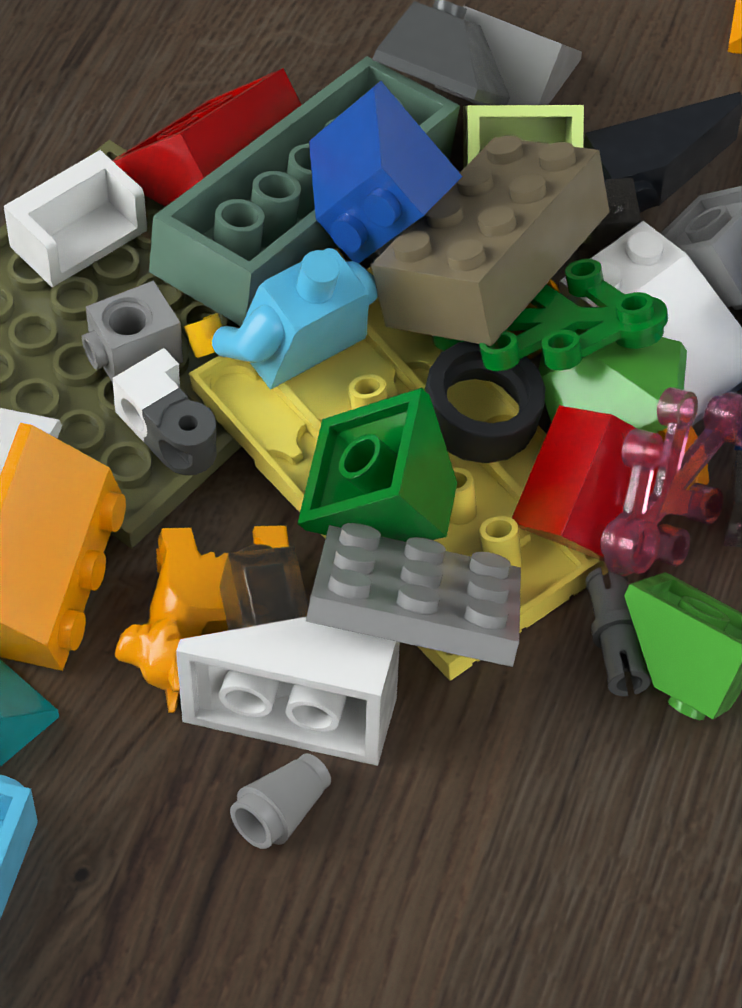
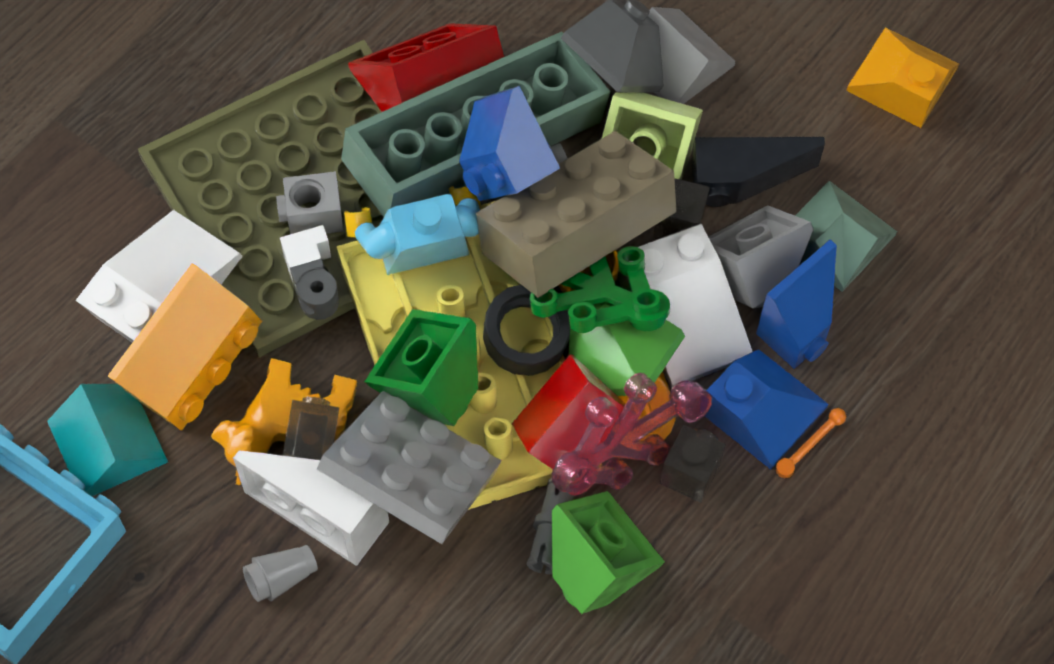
camera: 20 degrees right, 10 degrees up
(76, 218) = (310, 101): white panel -> none

